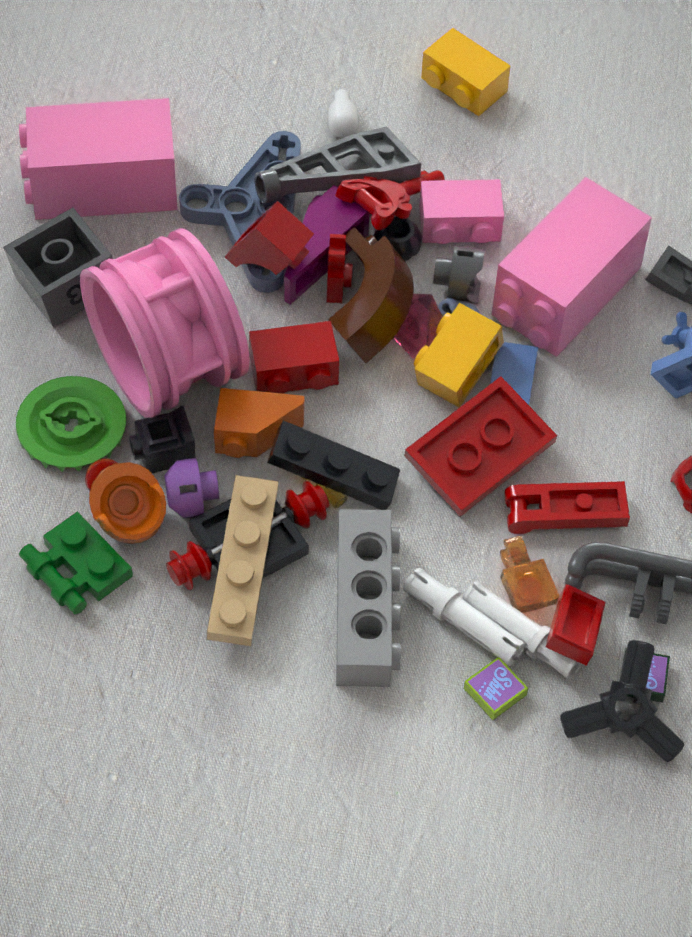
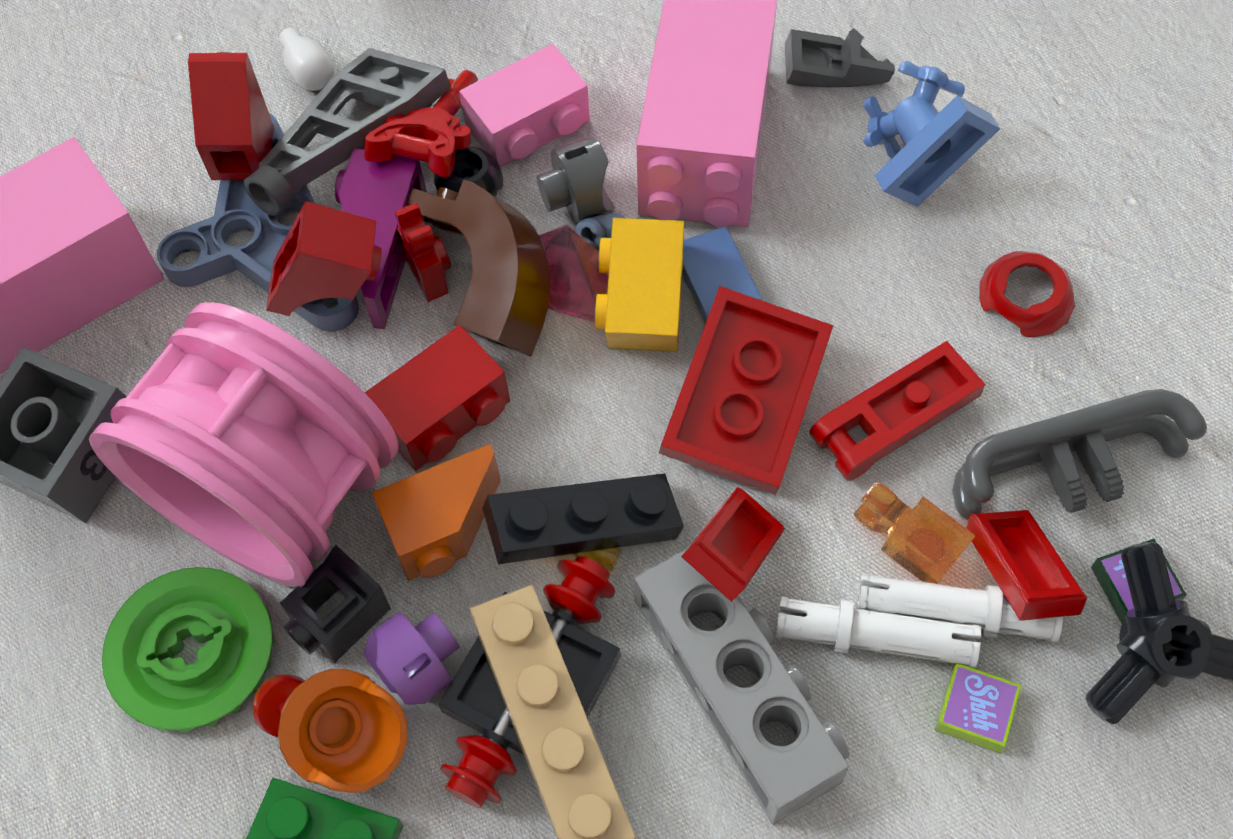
camera: 25 degrees left, 5 degrees up
(269, 128) = (228, 114): none -> red slope
(410, 522) = (734, 543): none -> red tile

